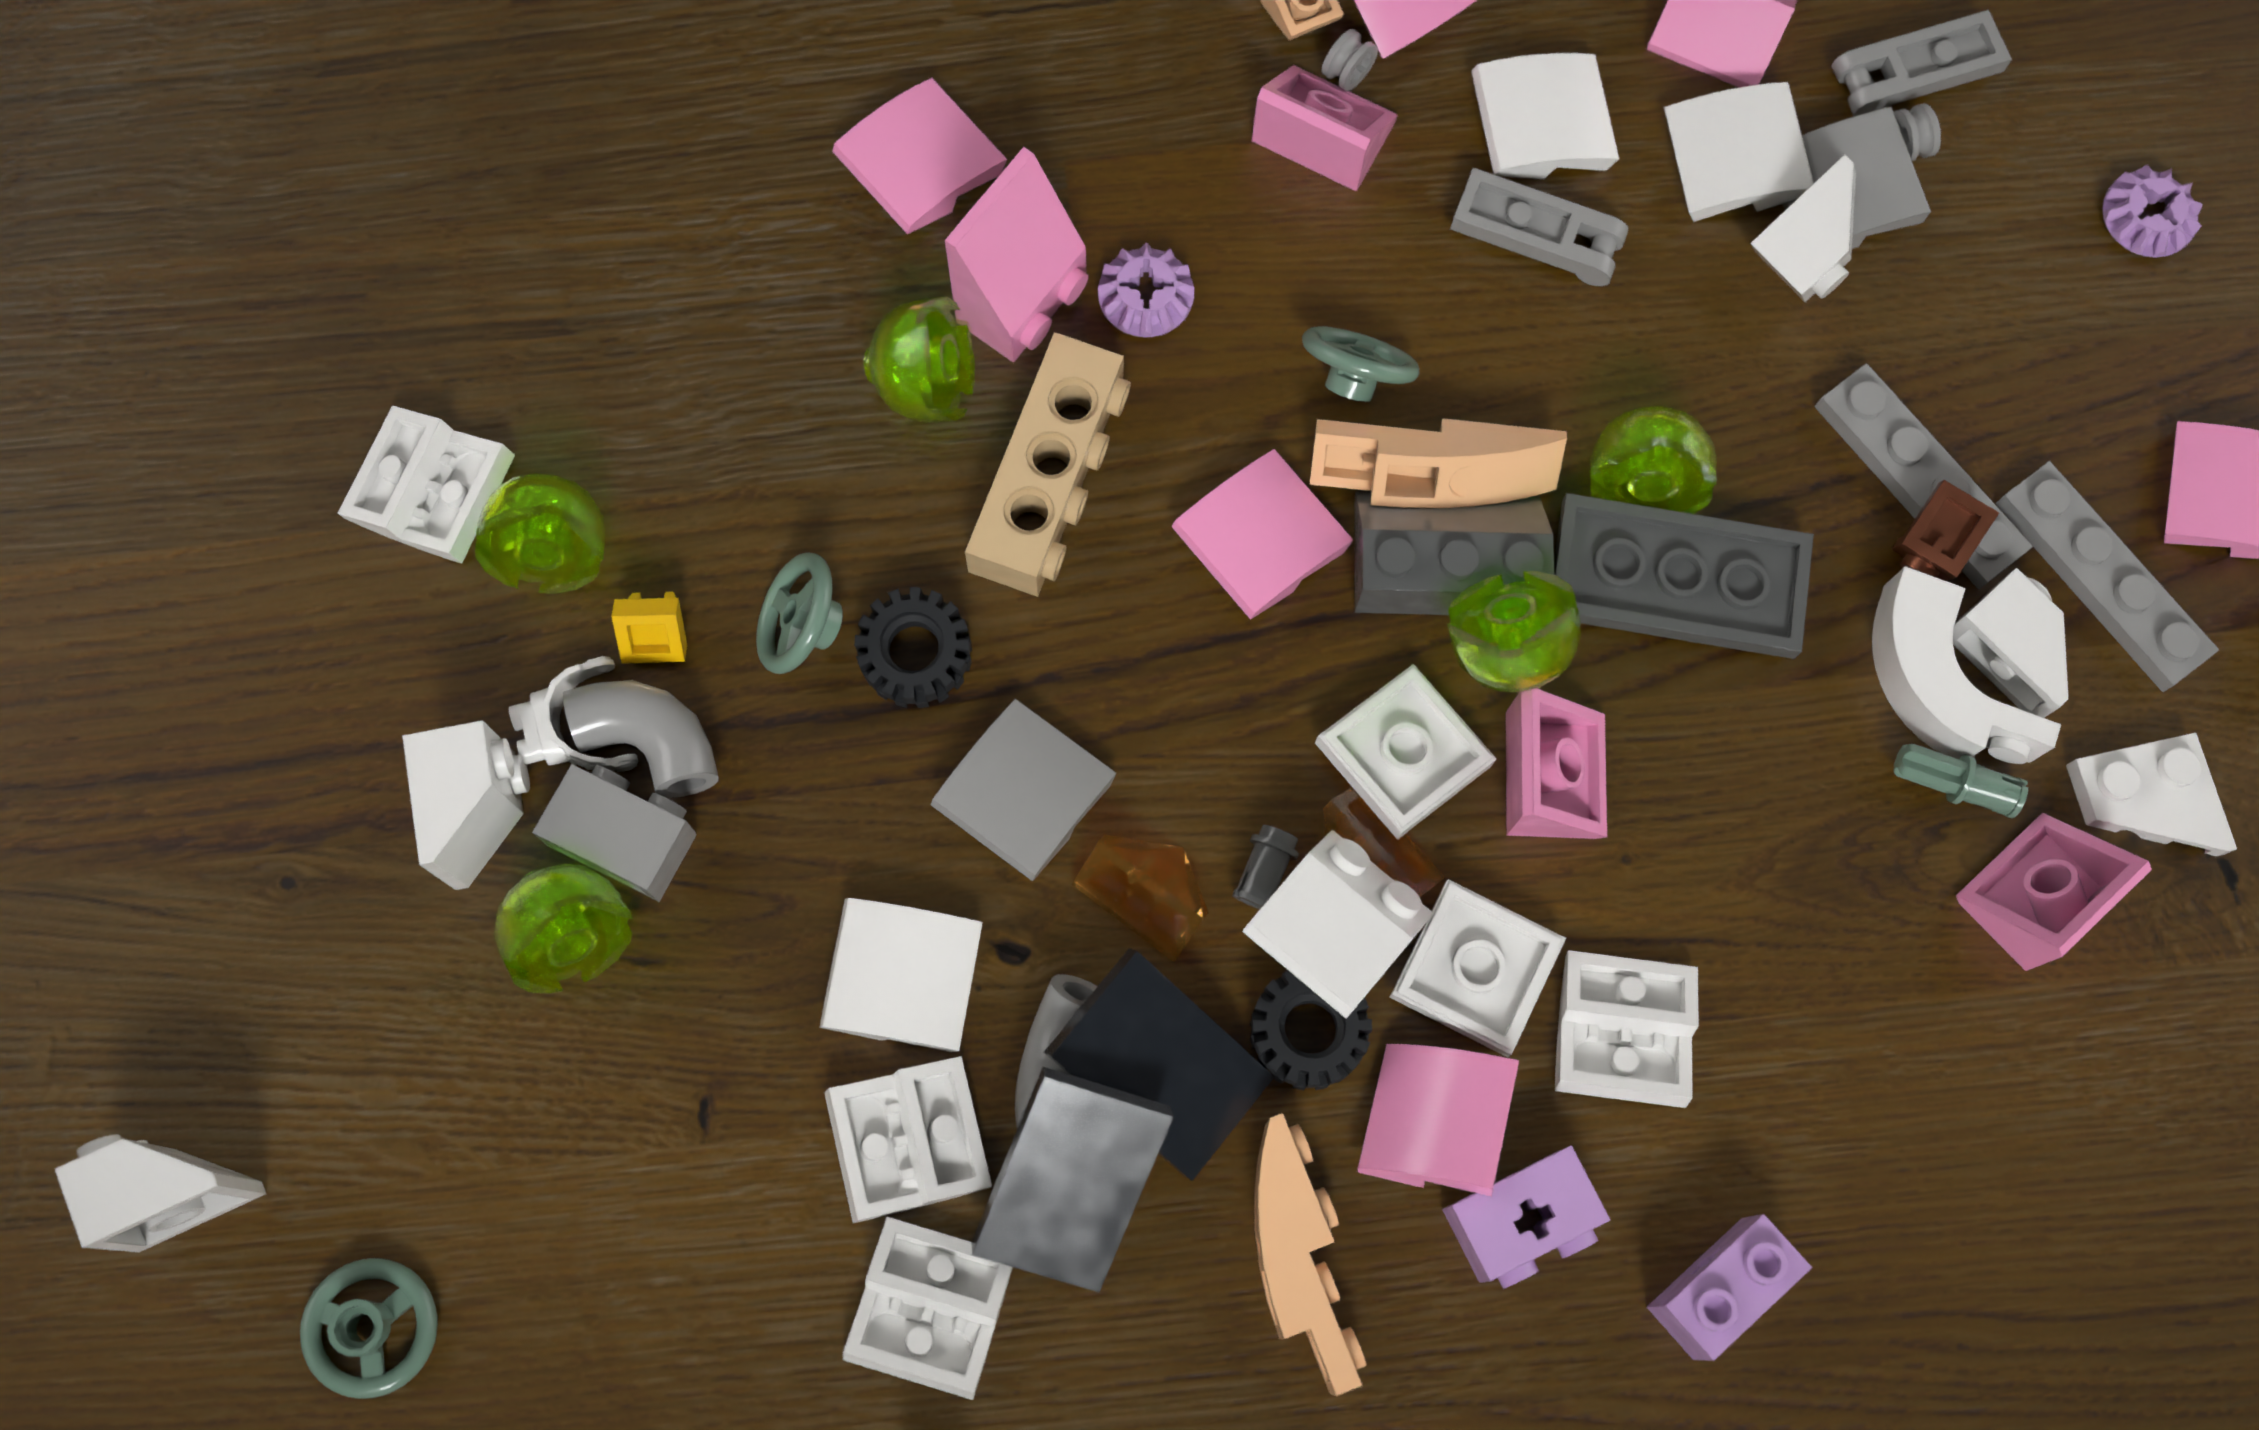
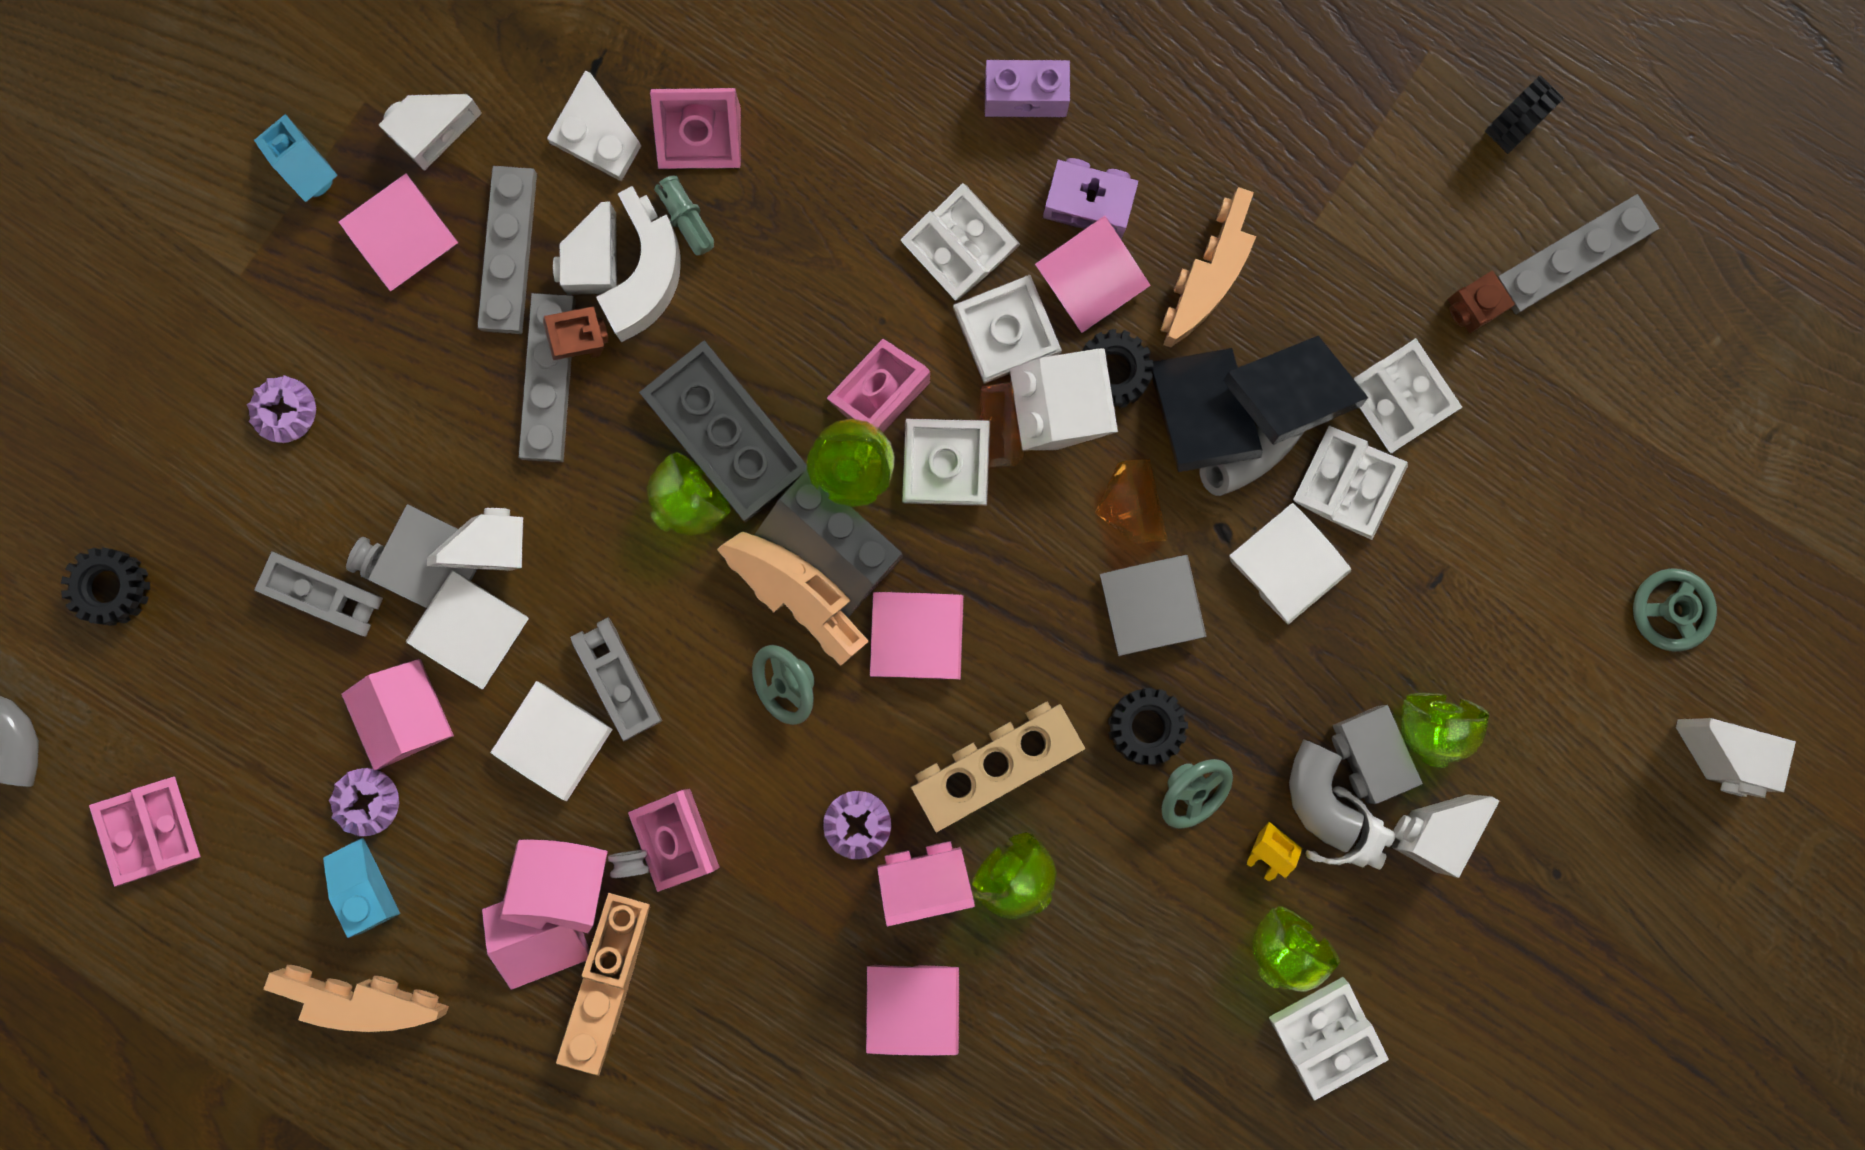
camera: 140 degrees left, 10 degrees up
(1265, 865) = (1066, 464): dark grey pin -> none

